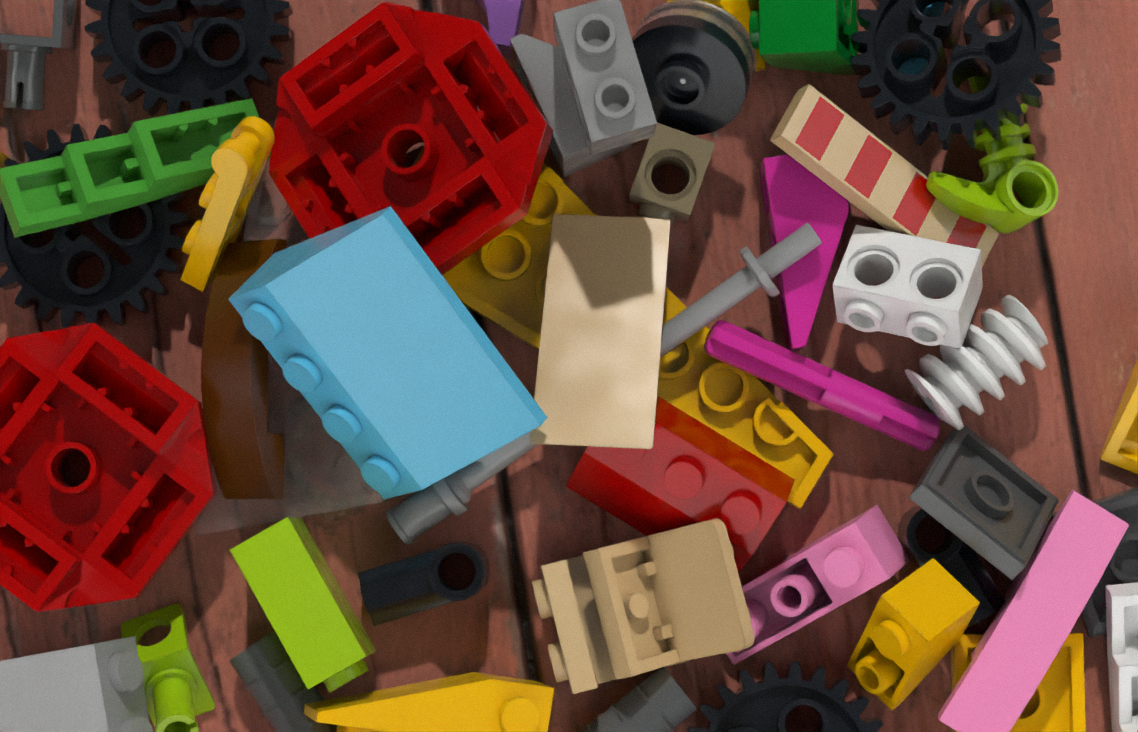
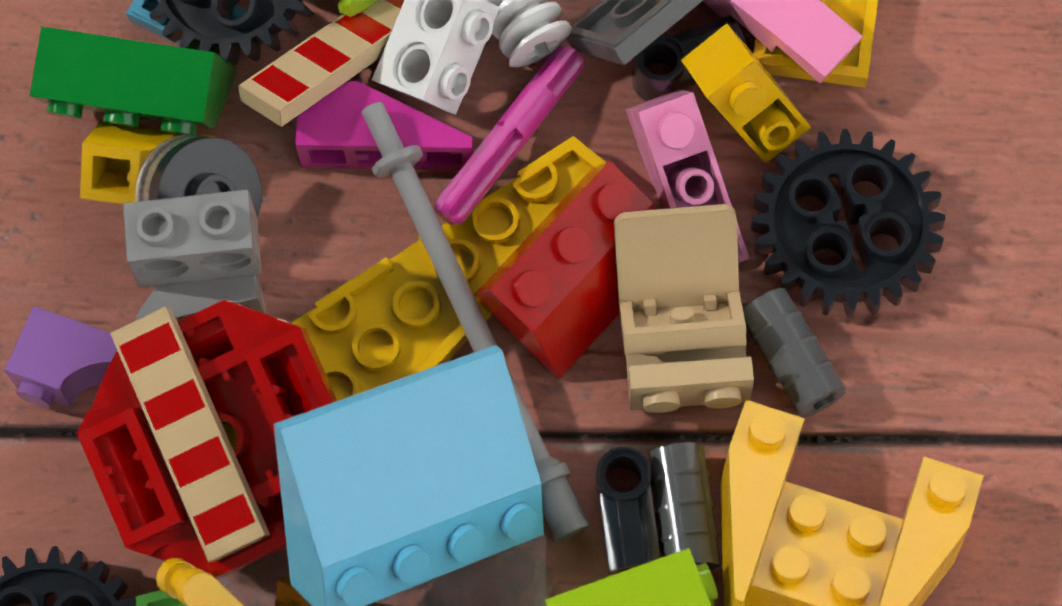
camera: 75 degrees left, 15 degrees down
(401, 117) = (190, 434): none -> tile
(439, 640) = (685, 502): none -> dark grey axle
(602, 331) = (423, 299): tan sticker -> none
(676, 149) = (284, 211): dark tan brick -> none

